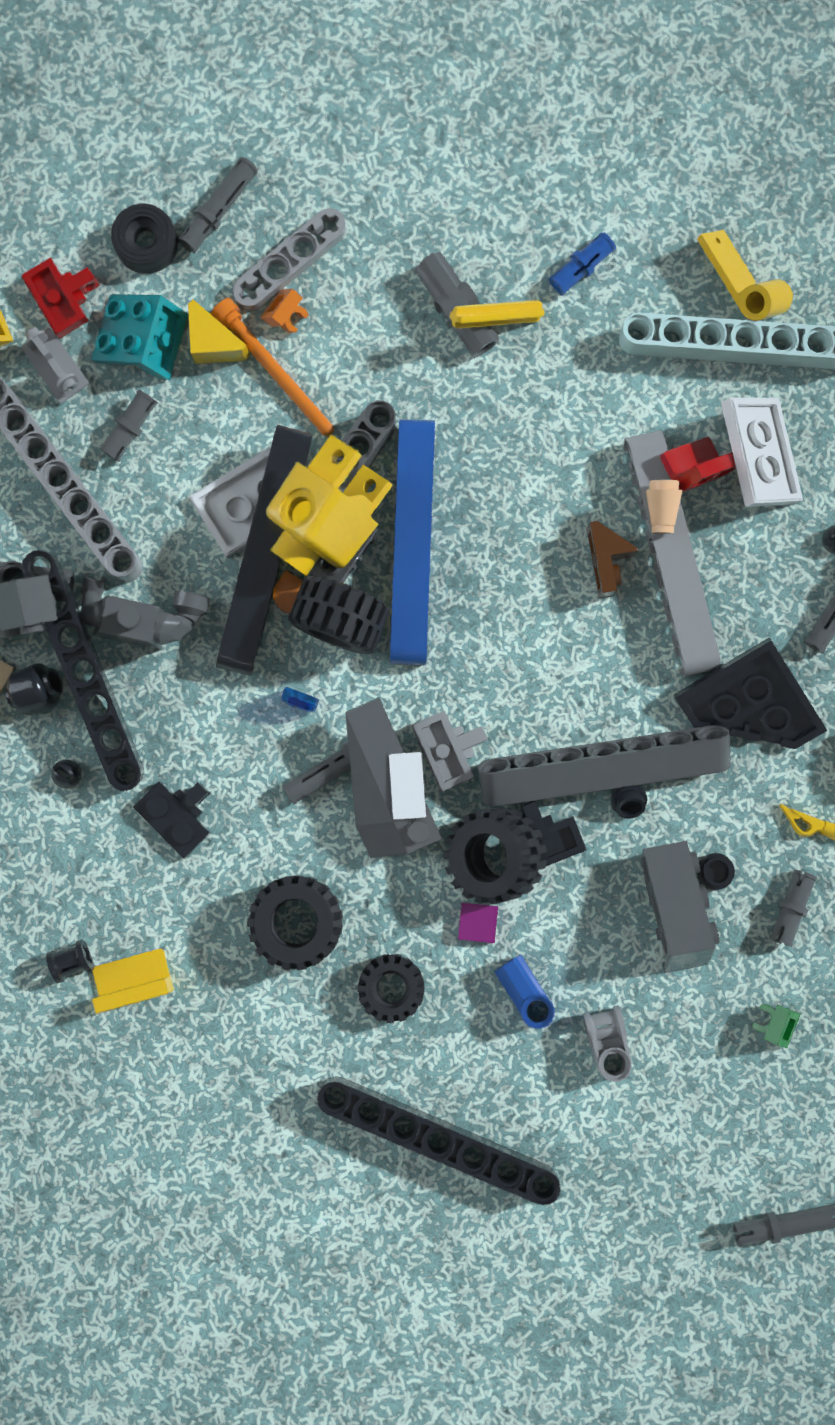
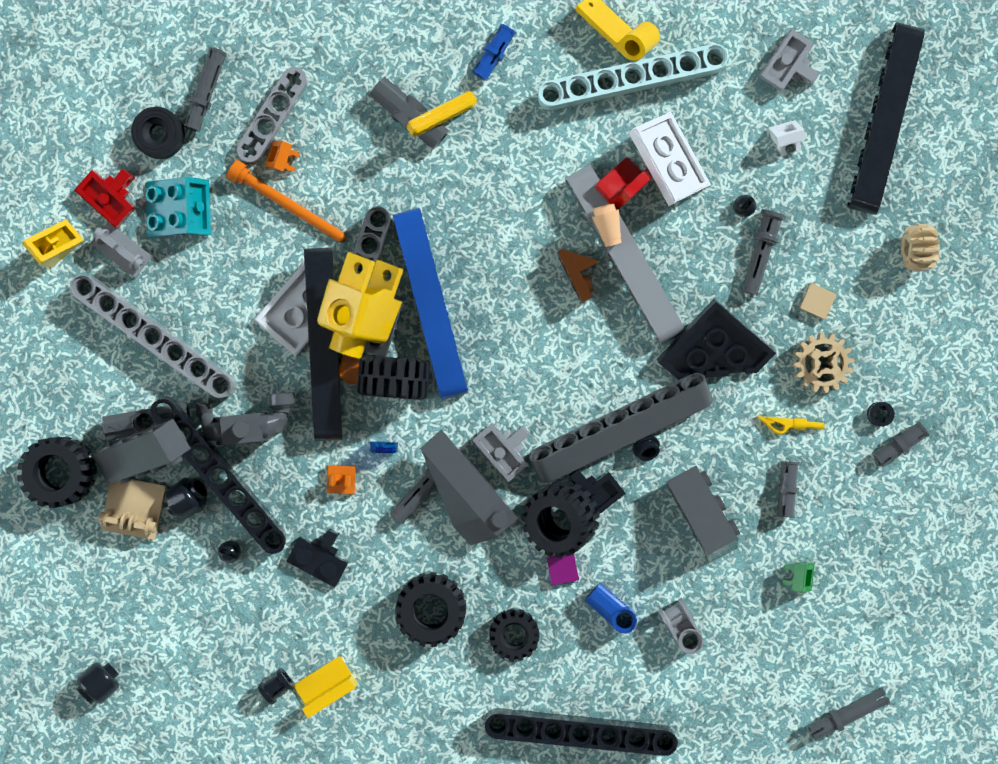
camera: 20 degrees left, 5 degrees up
(128, 425) = (191, 280): dark grey pin -> none
(212, 340) = (232, 196): yellow slope -> none
(234, 725) = (341, 479): none -> orange tile
(407, 785) = (481, 488): white sticker -> none
(716, 871) = (724, 479): black plate -> none

